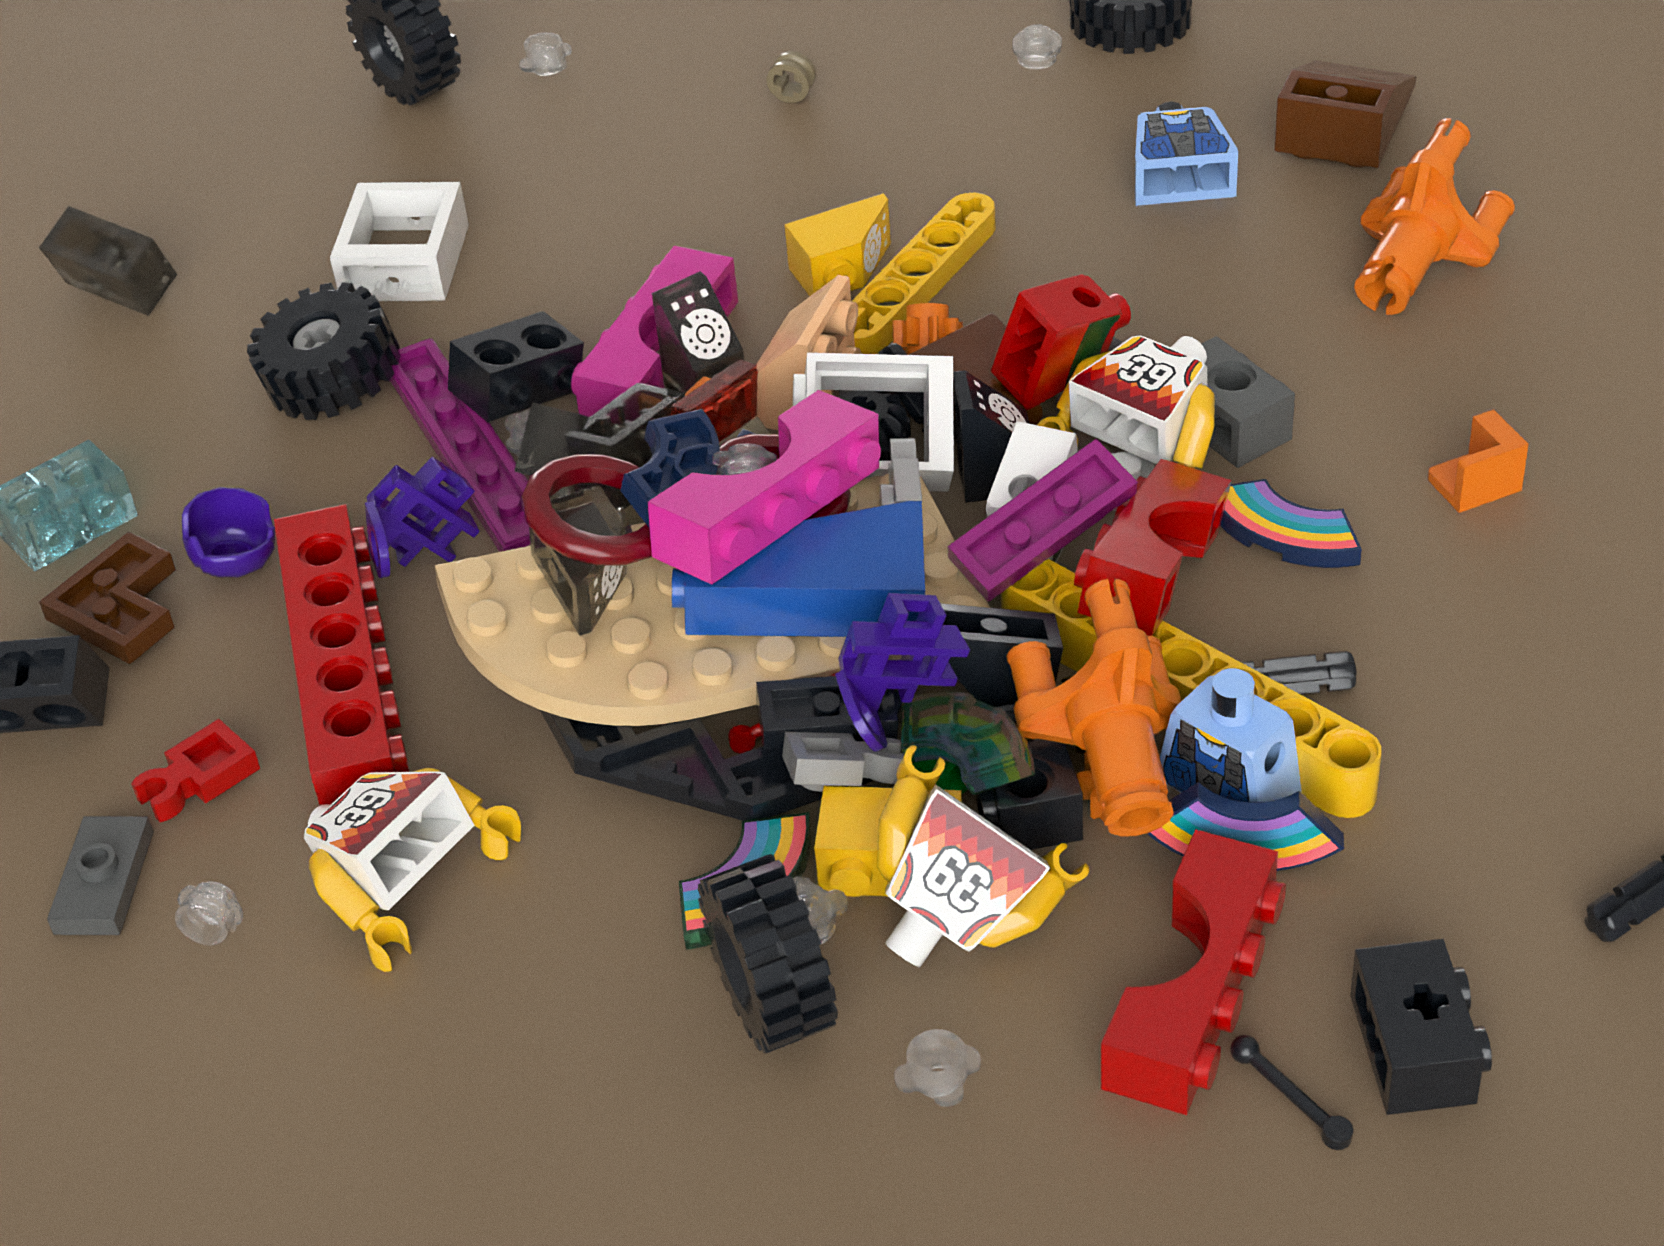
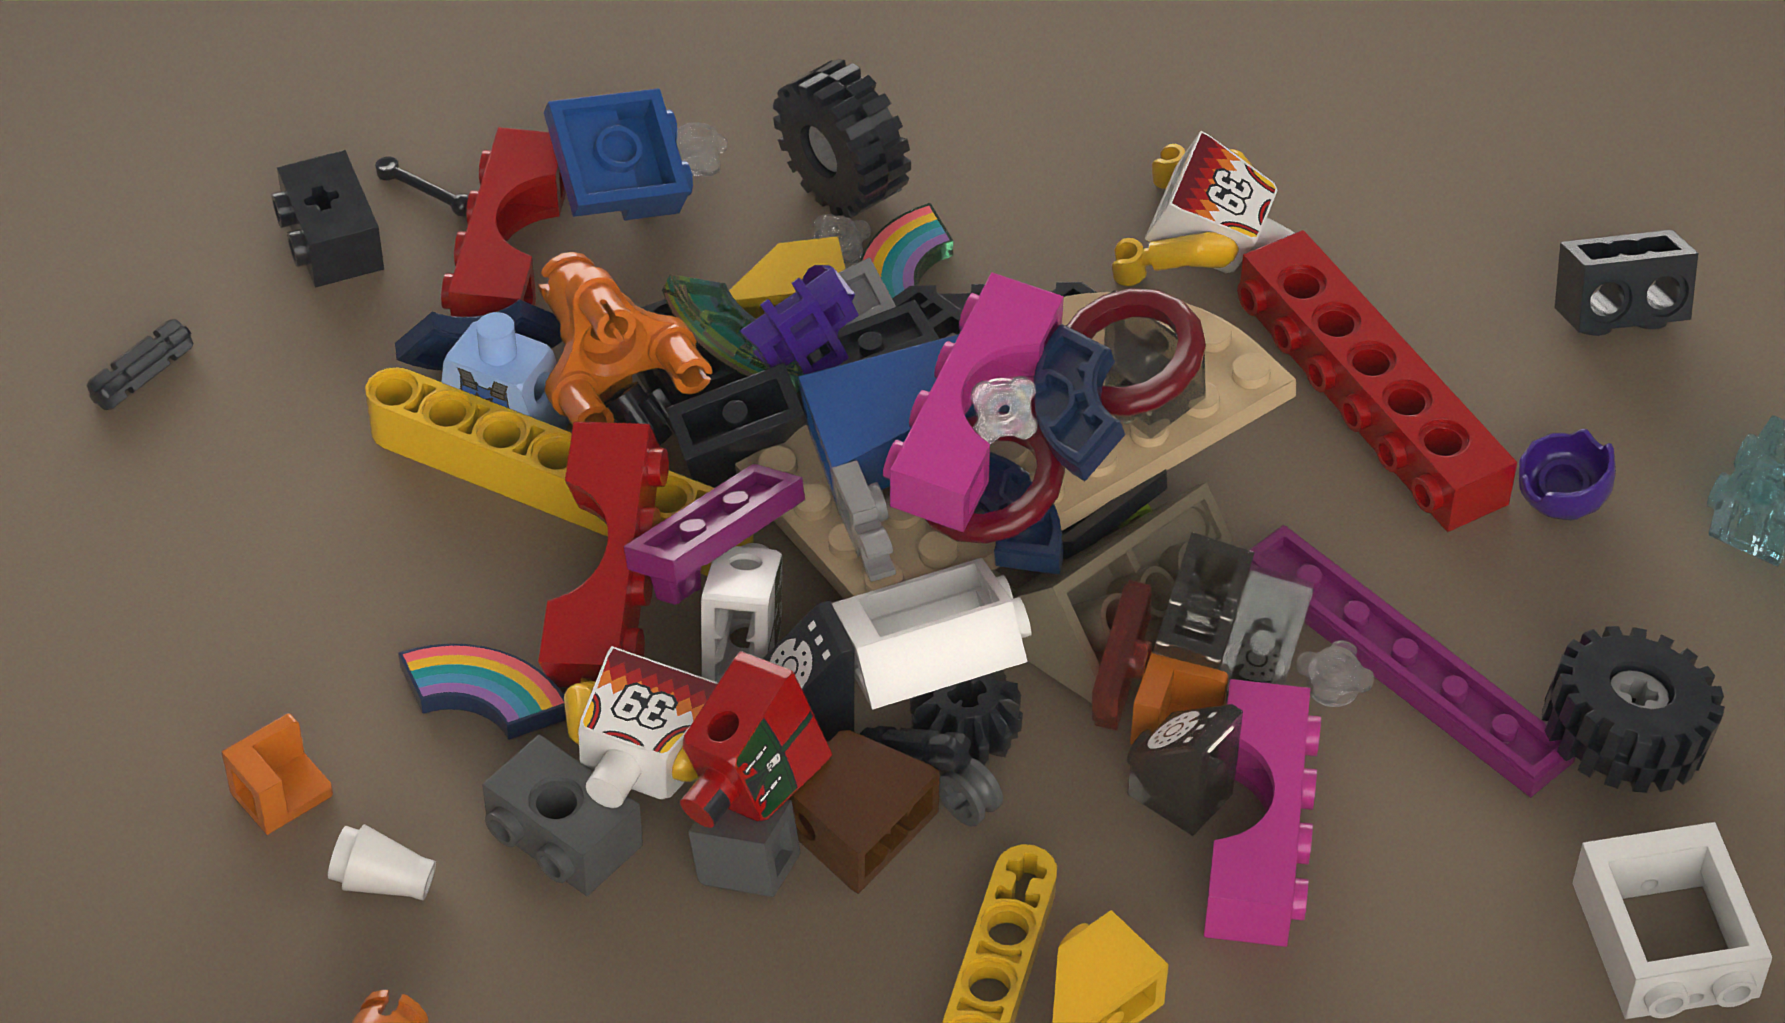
camera: 160 degrees right, 5 degrees up
(100, 875) = (1449, 185): dark grey plate -> none
(107, 599) = (1647, 400): reddish brown plate -> none
(199, 765) = (1427, 269): red plate -> none
(208, 912) = (1331, 161): clear plate -> none
(428, 502) = (1381, 494): dark purple piece -> none
(513, 365) = (1404, 721): black brick -> none
(816, 325) = (1056, 765): light nougat slope -> none
(923, 326) = (951, 853): orange gear -> none
(959, 870) = (702, 234): torso -> none
(1037, 998) = (619, 154): none -> blue plate
(1307, 674) = (457, 513): axle -> none
(1390, 393) = (379, 865): none -> white cone

